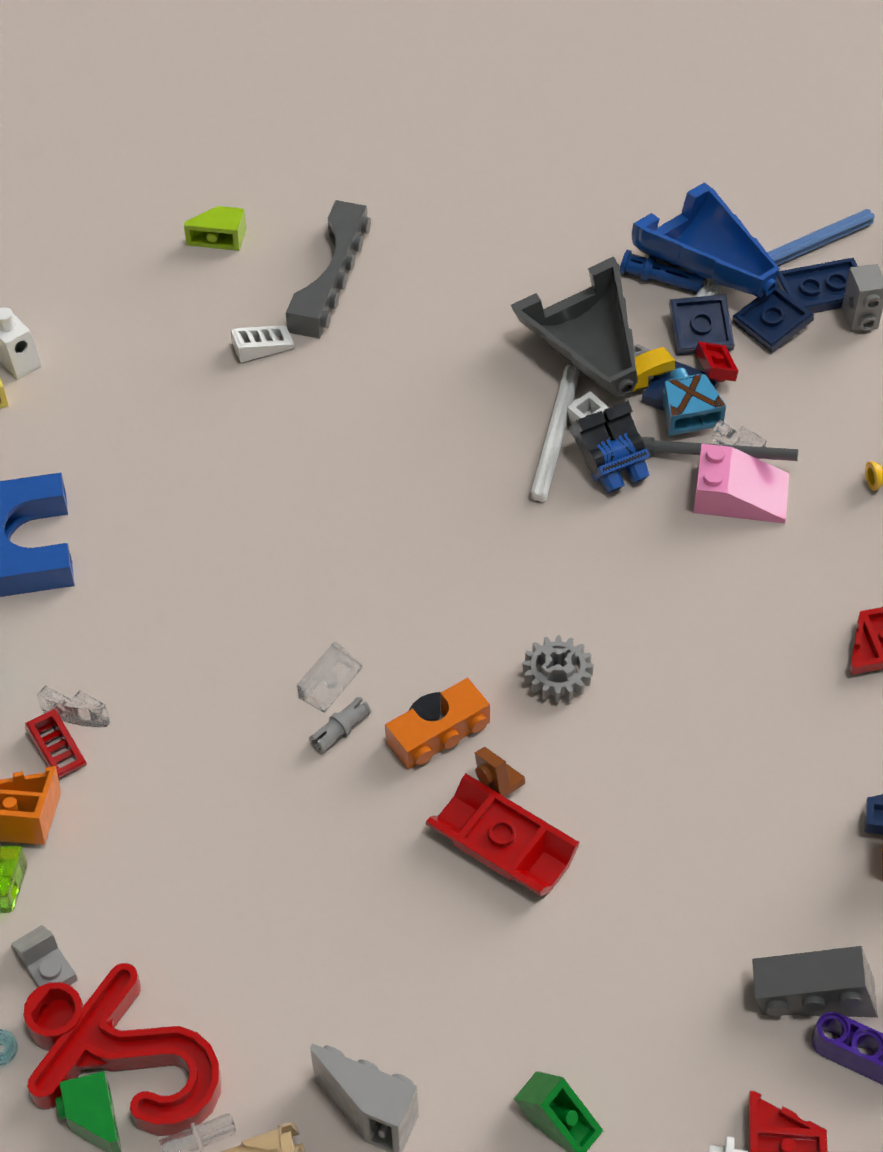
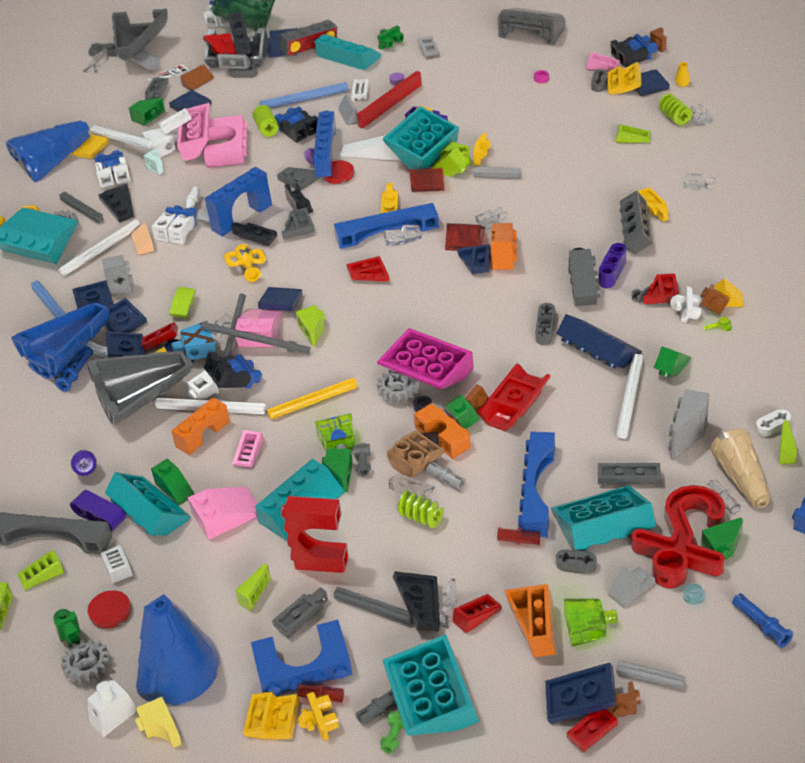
camera: 90 degrees left, 10 degrees down
(46, 395) = (174, 655): none -> blue cone
(97, 319) = (85, 661): none -> light grey gear
(97, 671) = (420, 598): none -> black wing
(103, 621) = (372, 605): none -> dark grey axle
(109, 885) = (576, 561): none -> dark grey beam
(114, 535) = (300, 612): none -> dark grey hinge
(156, 287) = (67, 626): none -> green hips
(168, 482) = (253, 587): none -> lime slope
(183, 340) = (109, 609): none -> red tile
(183, 812) = (518, 536): none -> clear red pin
(193, 935) = (604, 517): none -> teal slope
(203, 515) = (307, 552): none -> red arch
(220, 836) = (540, 455): none -> blue arch
(264, 679) = (420, 509): none -> lime piece
(268, 271) = (47, 568): none -> lime slope
(283, 992) = (629, 473): none -> dark grey plate
(324, 534) = (310, 481): none -> teal slope
(329, 449) = (222, 509): none -> bright pink slope
(358, 315) = (97, 509): none -> dark purple beam
(359, 365) = (146, 504): none -> teal slope
(379, 584) = (340, 465): none -> green slope
(392, 682) = (413, 453): none -> medium nougat slope
(394, 389) = (171, 481): none -> green slope
(416, 616) = (362, 451): none -> dark grey bar
(448, 291) = (84, 455): none -> dark purple head
(453, 583) = (336, 432): none -> clear neon green torso
(466, 487) = (250, 436): none -> bright pink slope
(468, 738) = (461, 411): none -> green slope
(485, 1028) = (629, 397): none -> white axle
(515, 706) = (421, 402): none -> black tile
(521, 426) = (189, 433): none -> orange arch
(553, 559) = (312, 398): none -> yellow axle
(595, 704) = (428, 359): none -> dark pink slope
(633, 992) = (598, 342): none -> dark blue slope
(678, 526) = (291, 346): none -> dark grey bar
(729, 555) = (311, 323): none -> lime slope
(730, 906) = (548, 329): none -> dark grey beam
(776, 1094) = (639, 294): none -> dark grey hand
(804, 514) = (280, 299): none -> dark blue tile
(808, 386) = (182, 302): none -> lime slope

